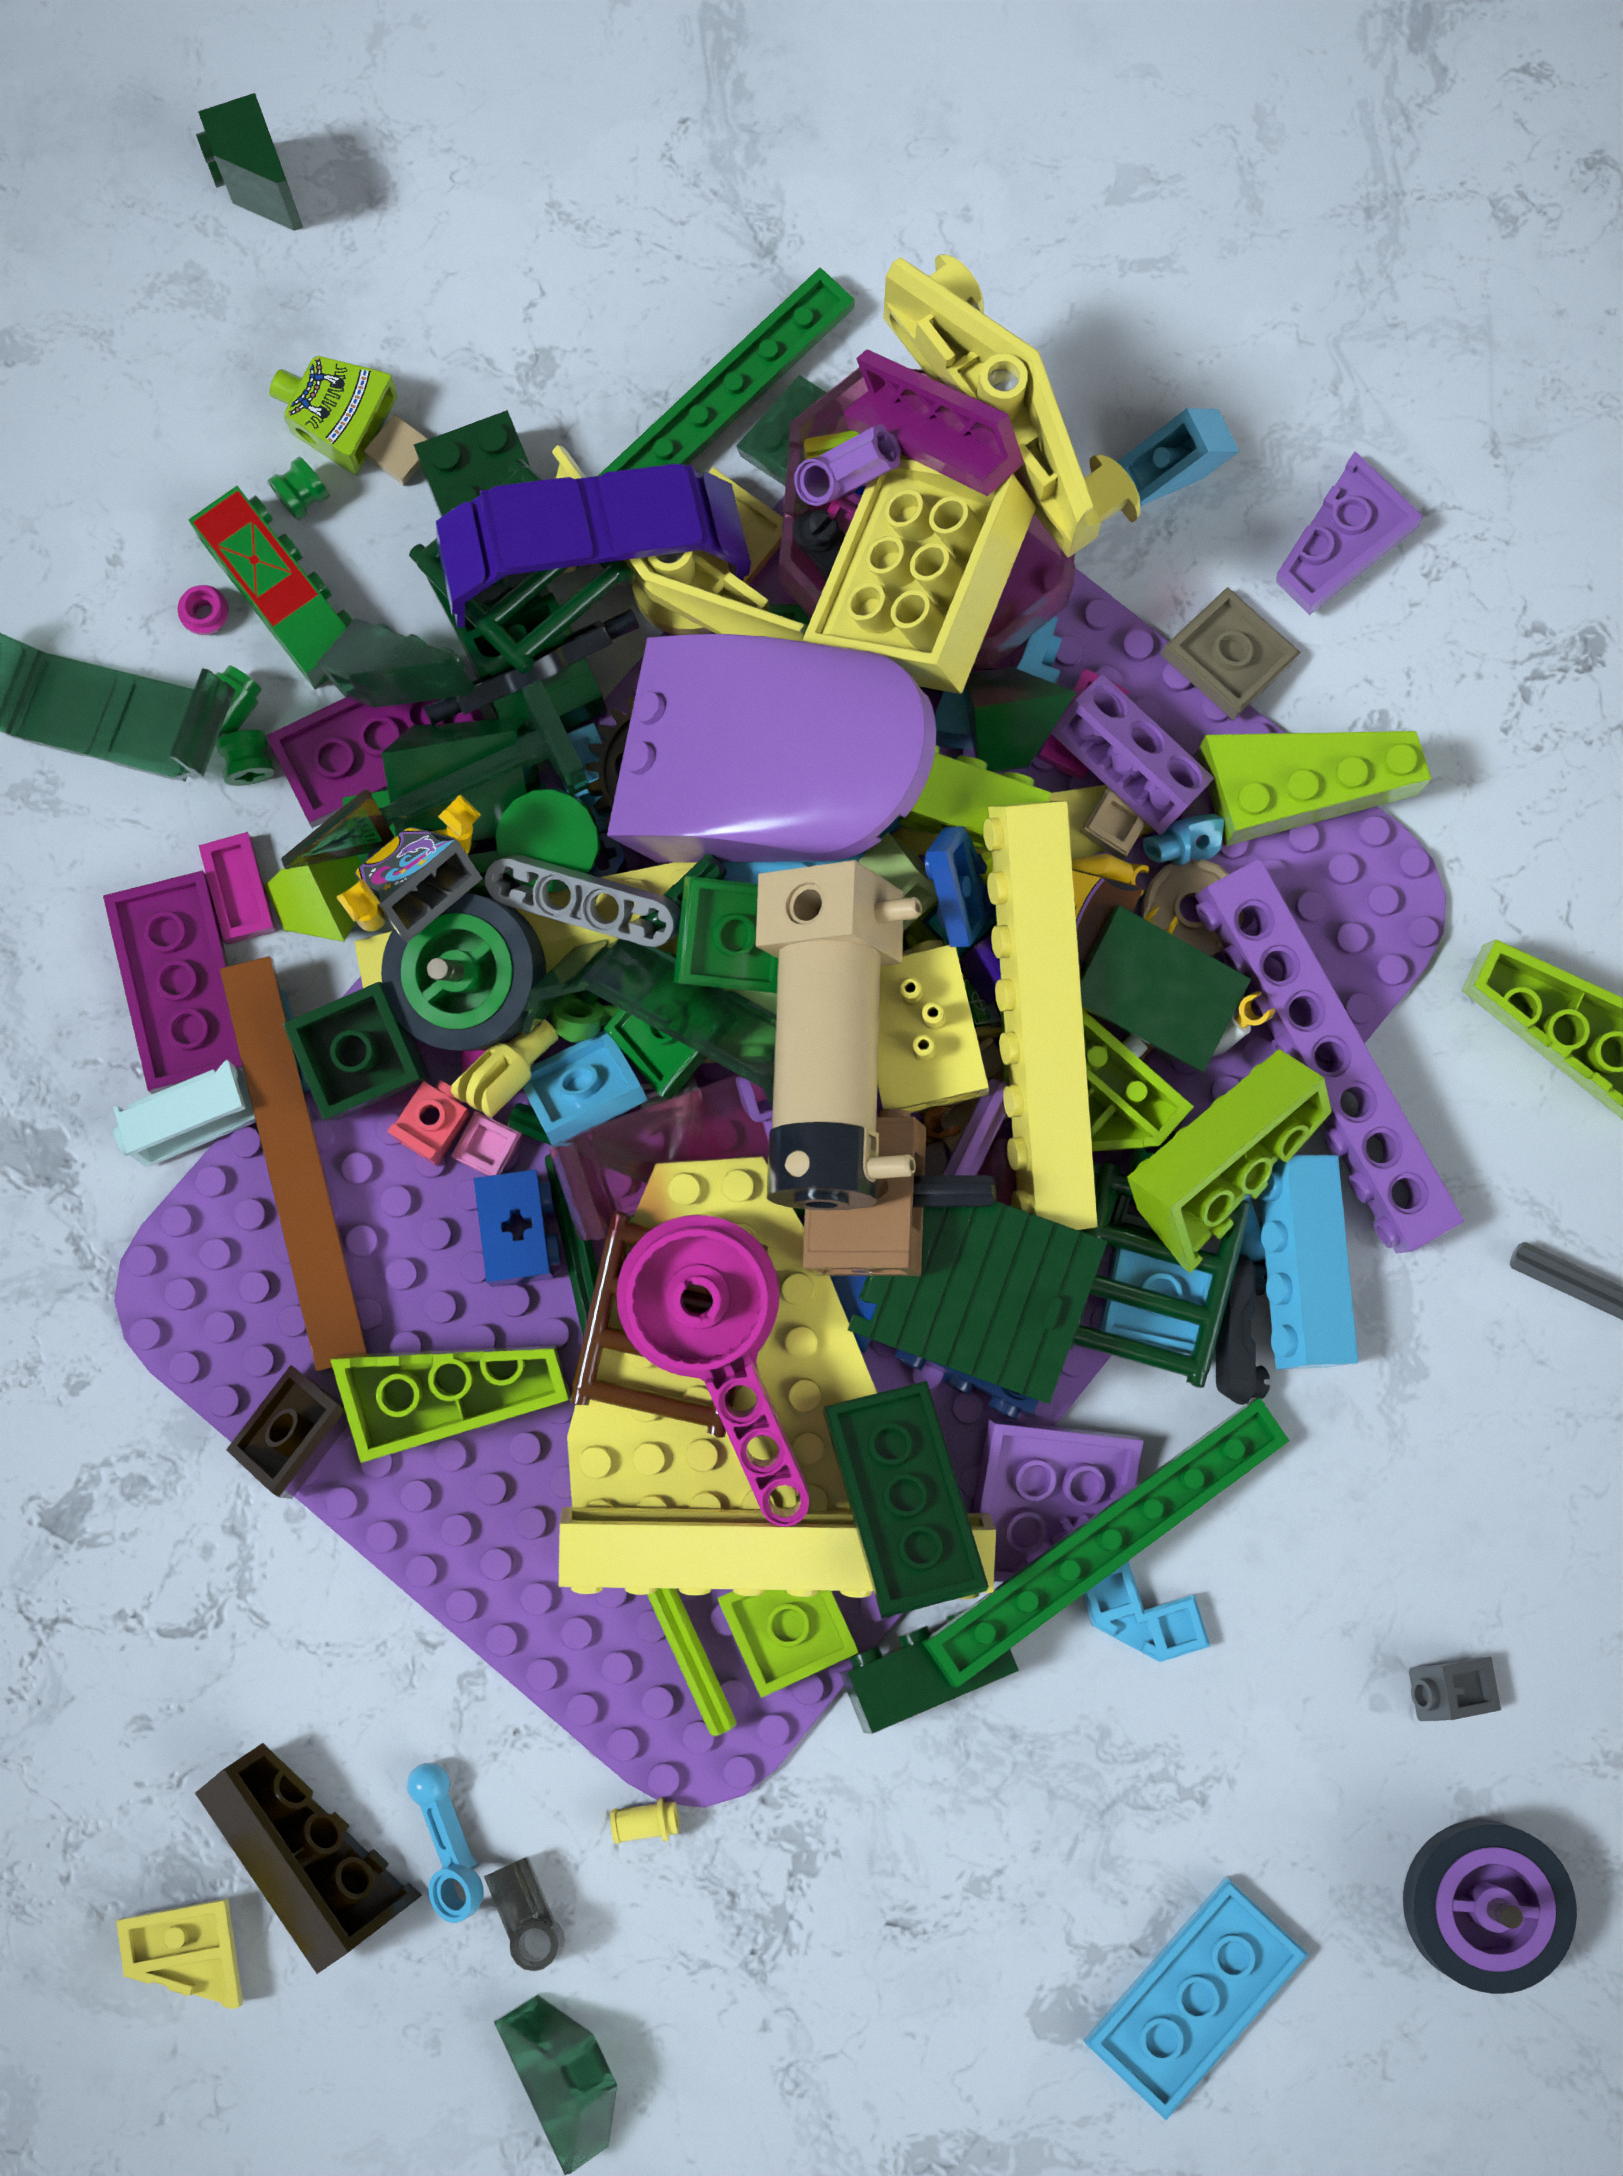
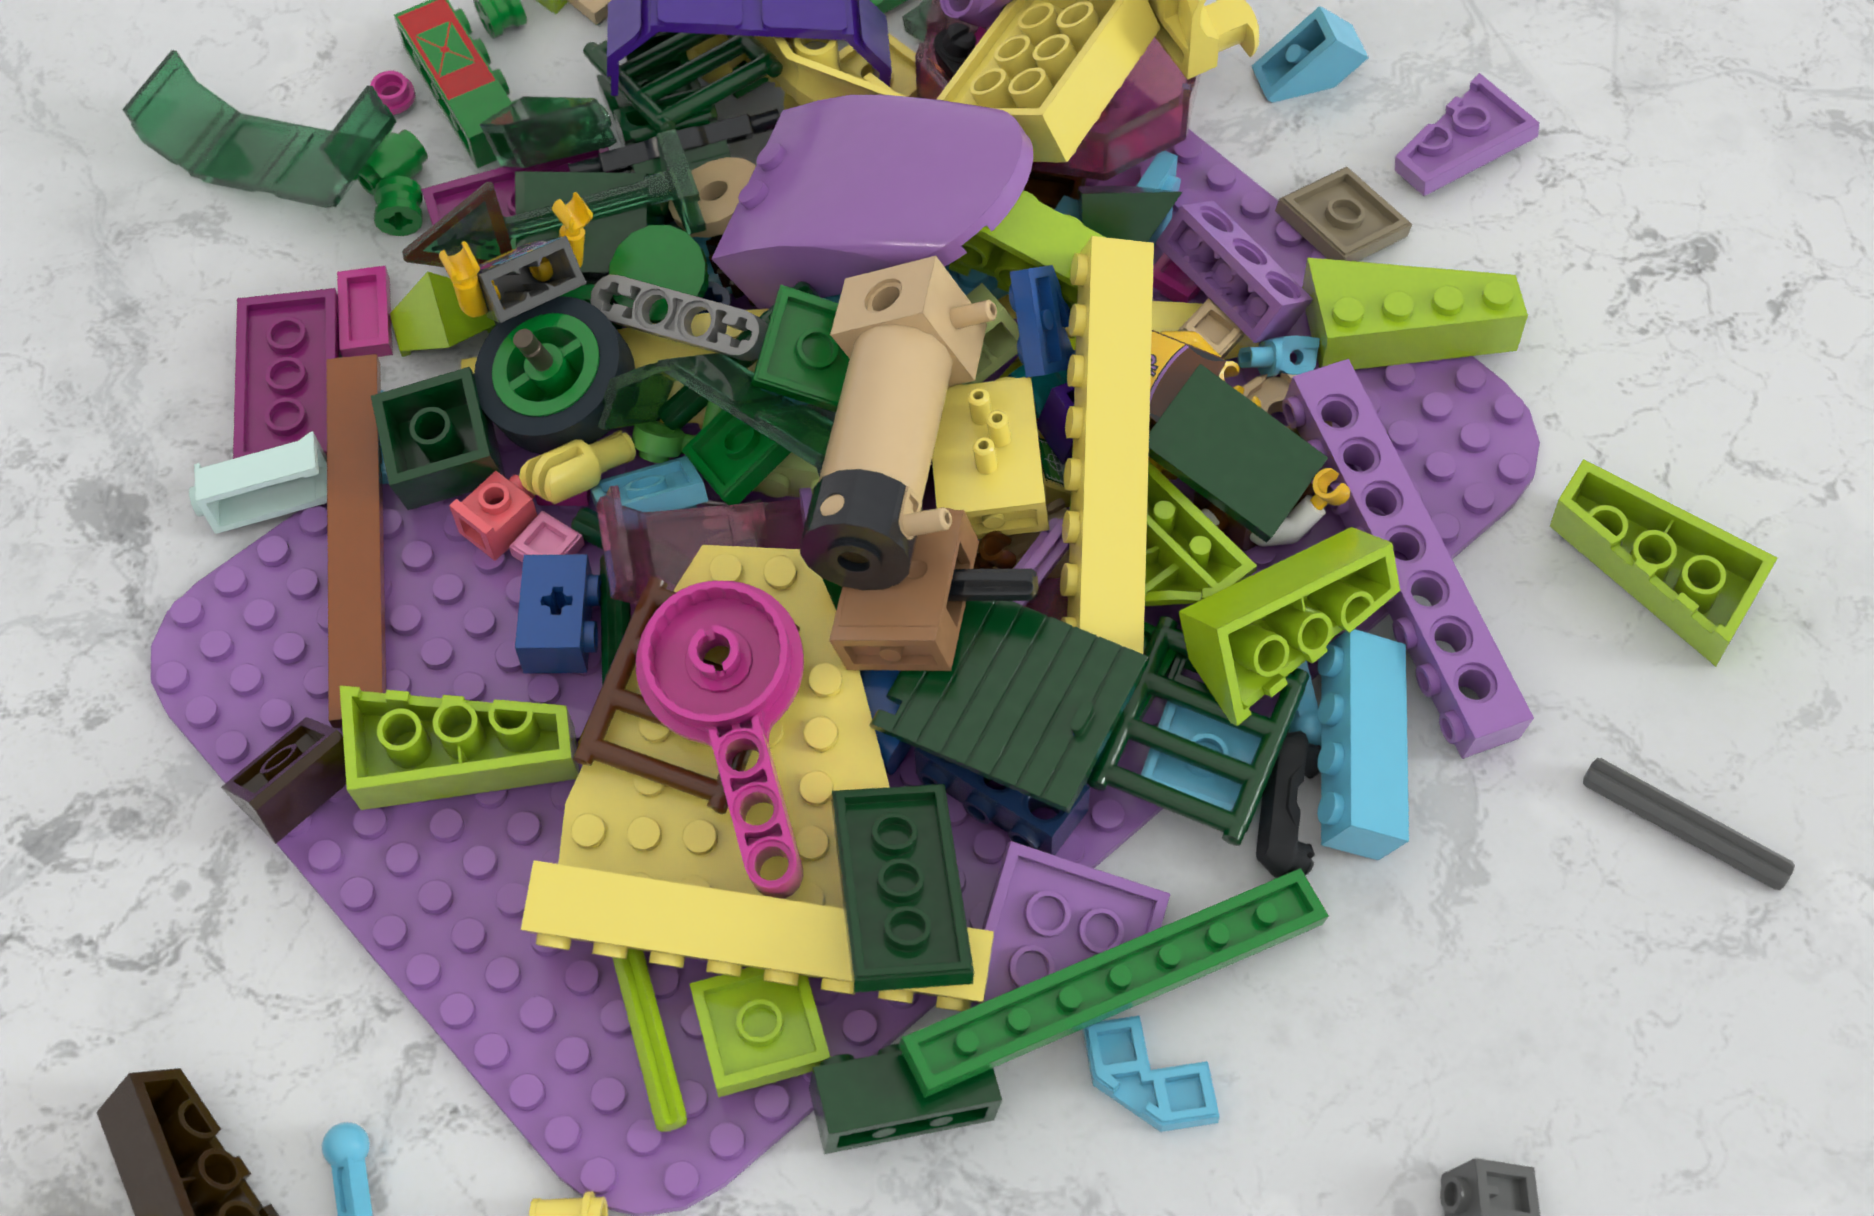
camera: 15 degrees right, 20 degrees down
(596, 707) = (715, 179): none -> tan tile

